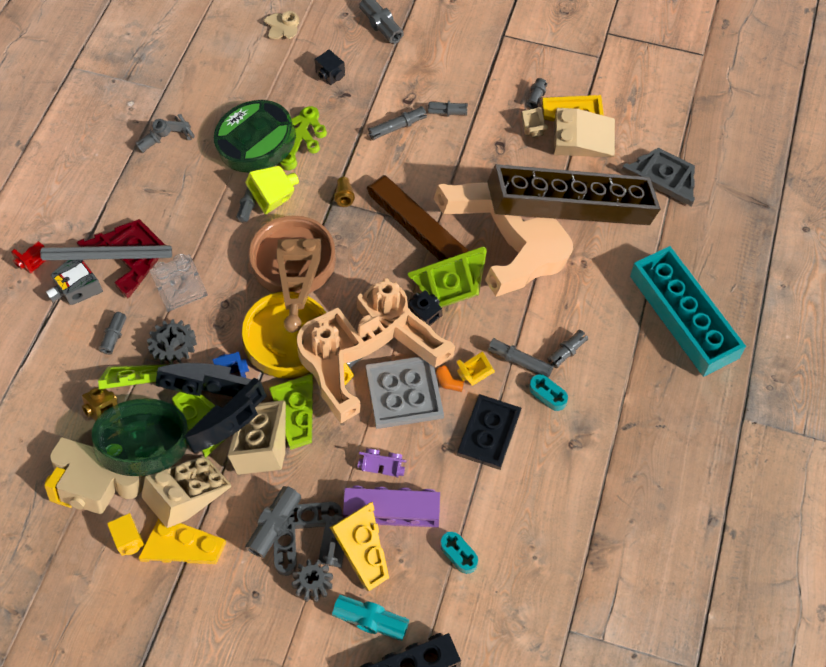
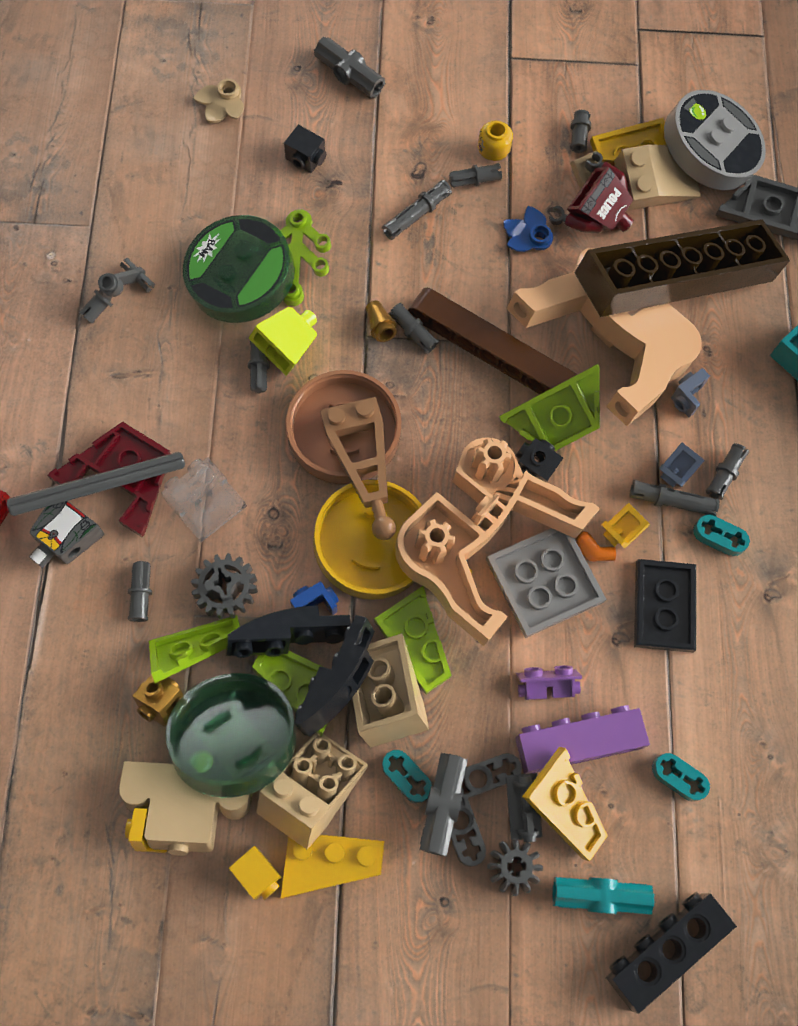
camera: 20 degrees left, 10 degrees up
(252, 503) = (401, 781): none -> teal beam
(367, 201) = (413, 328): none -> dark grey pin
(469, 87) = (495, 140): none -> yellow head
(473, 154) = (524, 232): none -> blue plate
(531, 143) = (600, 201): none -> dark red torso
(532, 336) = (680, 465): none -> sand blue bracket
(557, 284) = (684, 393): none -> sand blue bracket
(633, 116) = (714, 140): none -> light grey piece

